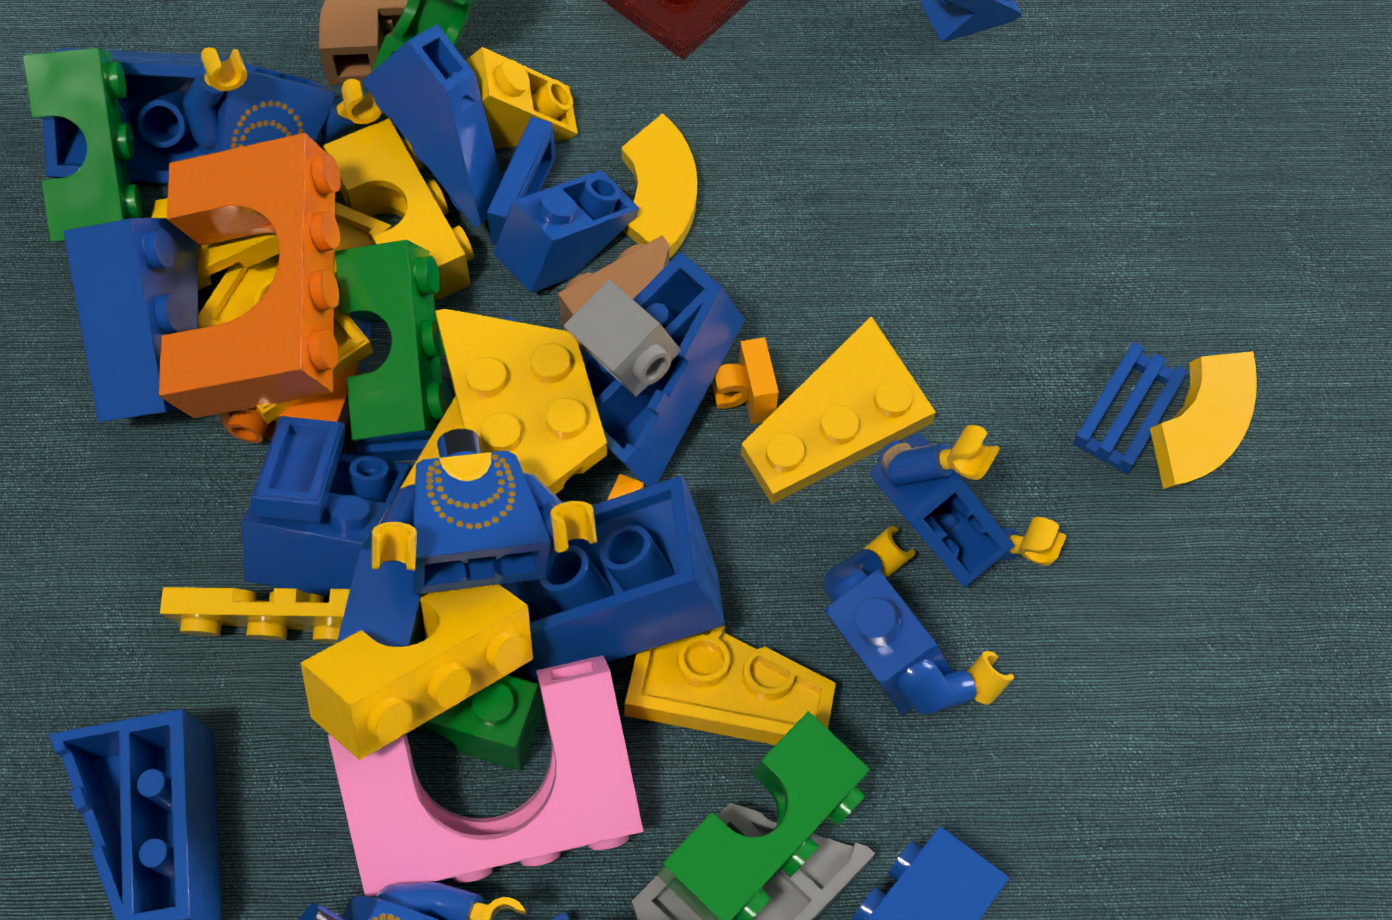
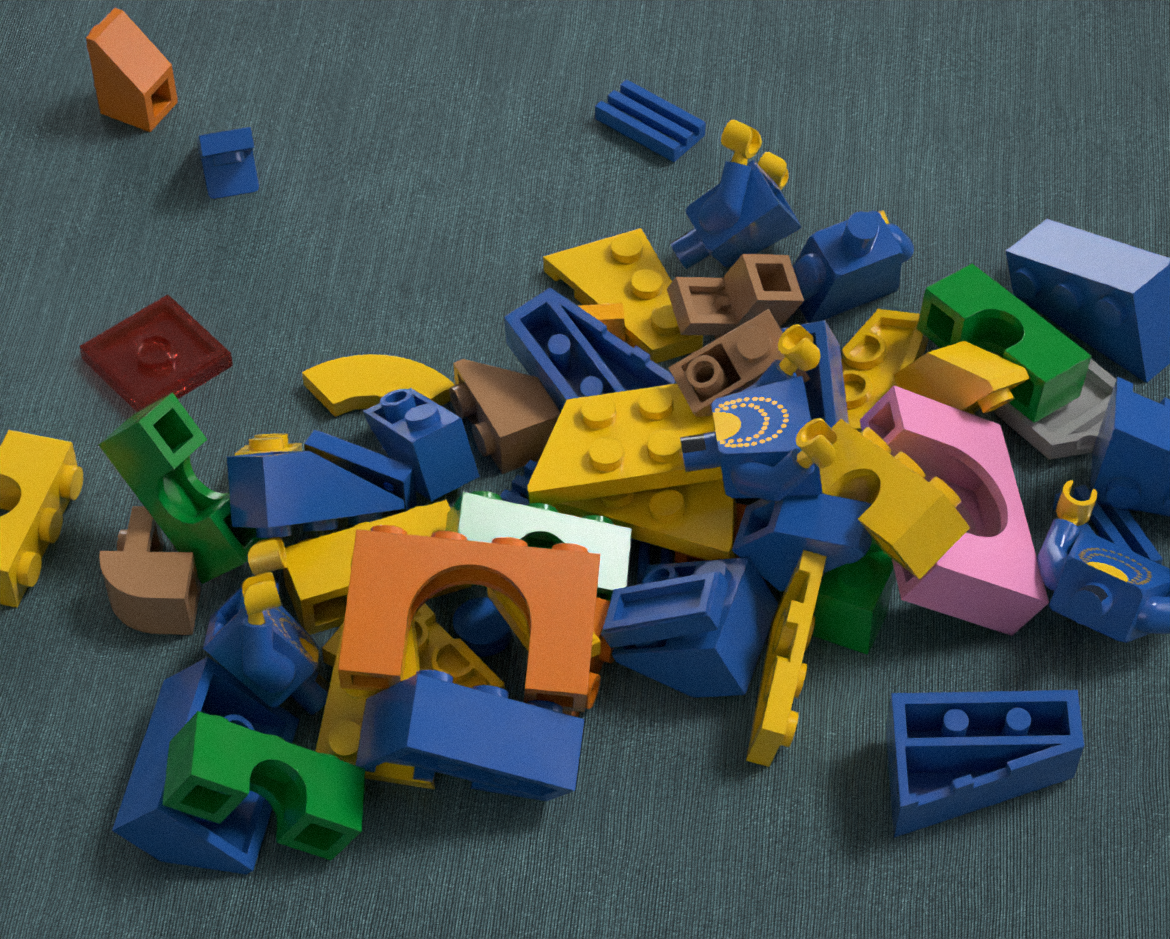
camera: 80 degrees left, 15 degrees down
(623, 338) = (590, 352): light grey brick -> none
(625, 513) = (729, 363): none -> medium nougat slope
(687, 773) = (963, 377): none -> yellow slope
(804, 509) = (744, 292): none -> medium nougat brick
(1210, 421) = (675, 76): yellow tile -> none

